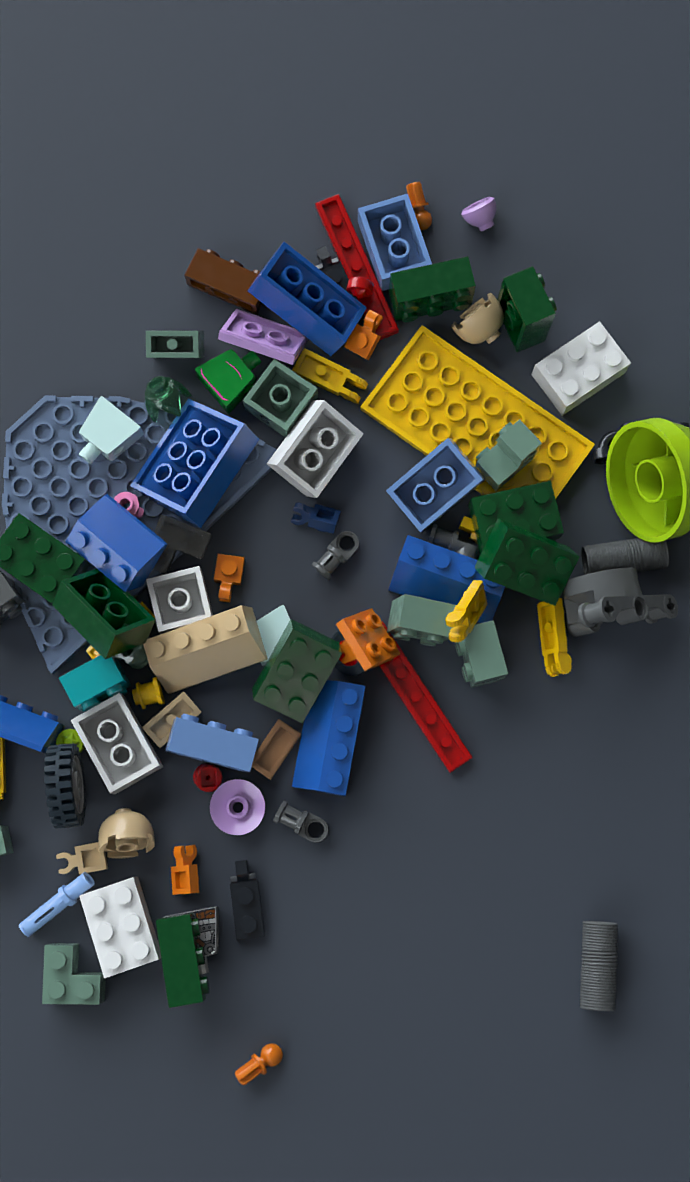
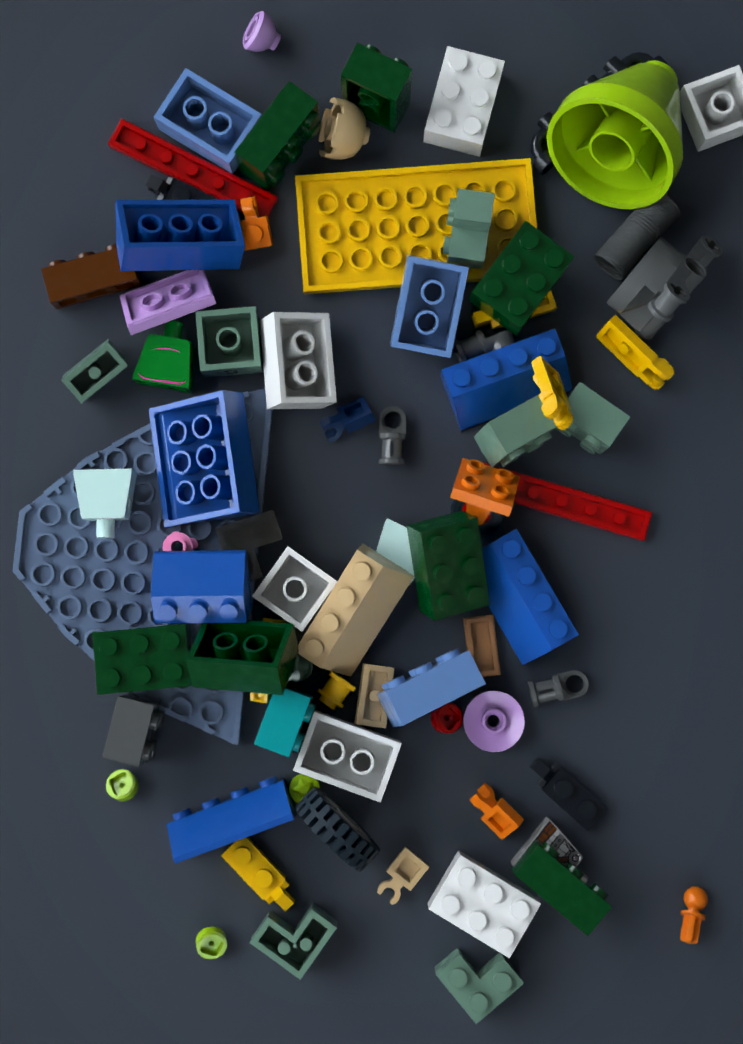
camera: 40 degrees left, 5 degrees up
(65, 897) = (415, 919): light blue pin -> none
(125, 833) = (420, 824): tan cylinder -> none
(165, 395) = (125, 423): clear green piece -> none
(228, 573) = (313, 530): orange plate -> none
(328, 375) = (250, 287): yellow hinge -> none
(360, 287) = (214, 186): red tile -> none
(418, 202) = (189, 61): orange axle -> none
(526, 562) = (566, 308): dark green brick -> none

